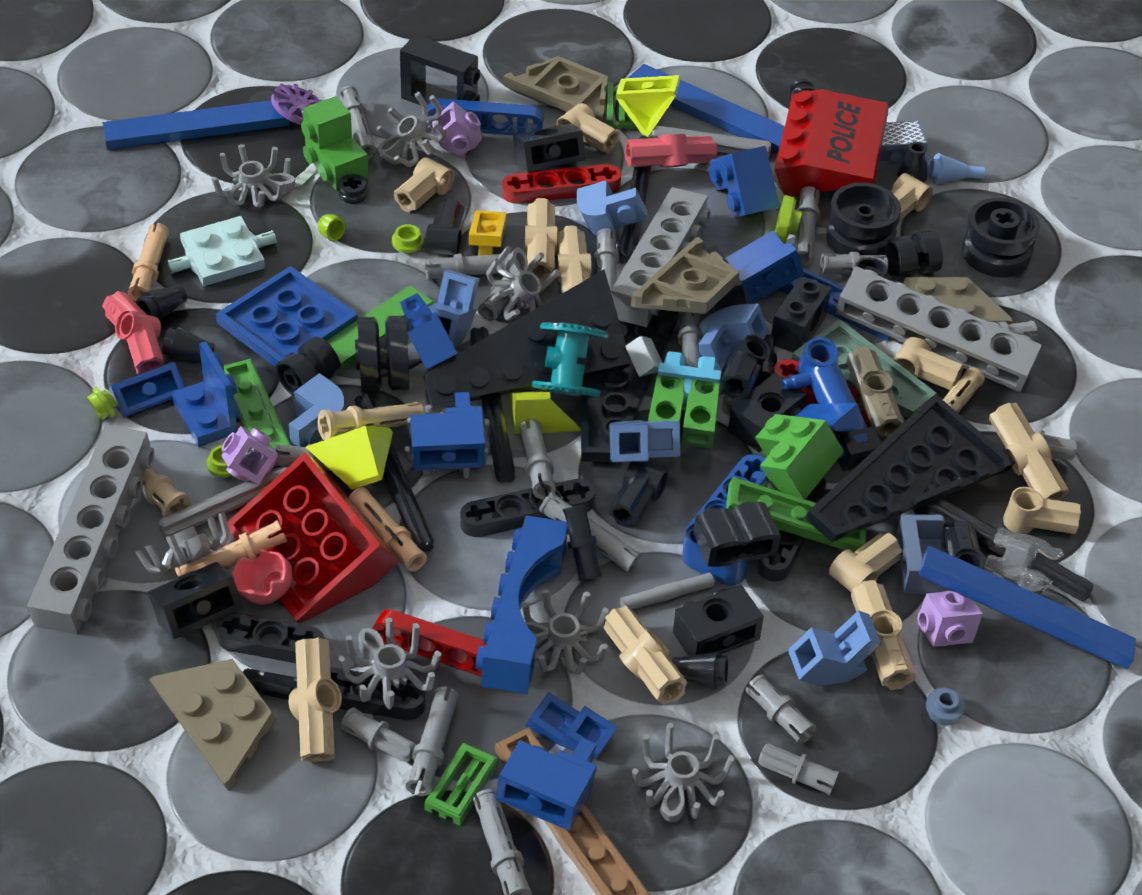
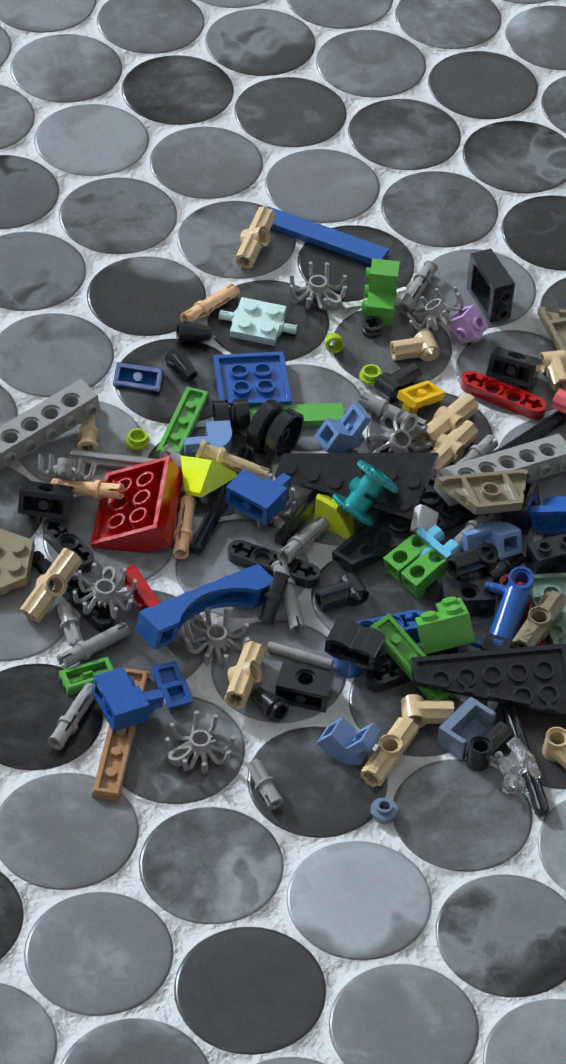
camera: 40 degrees right, 0 degrees up
(102, 403) = (105, 369): lime plate -> none
(128, 161) = (255, 237): none -> tan piece
(137, 328) = (161, 339): coral piece -> none
(209, 405) = (157, 402): blue bracket -> none
(254, 464) = (145, 441): lavender brick -> none
(263, 578) = (89, 510): coral hair -> none
(294, 102) = (393, 254): medium lavender wheel -> none
(427, 332) = (307, 433): blue hinge -> none
(487, 110) = (518, 341): blue beam -> none
(609, 210) = (506, 424): medium blue brick -> none
(644, 440) = (366, 563): medium blue brick -> none
(780, 709) = (290, 751): light grey pin -> none
(838, 415) = (486, 618): blue slope -> none
(949, 618) = (434, 766): lavender brick -> none
(1028, 607) = (486, 790): blue tile -> none

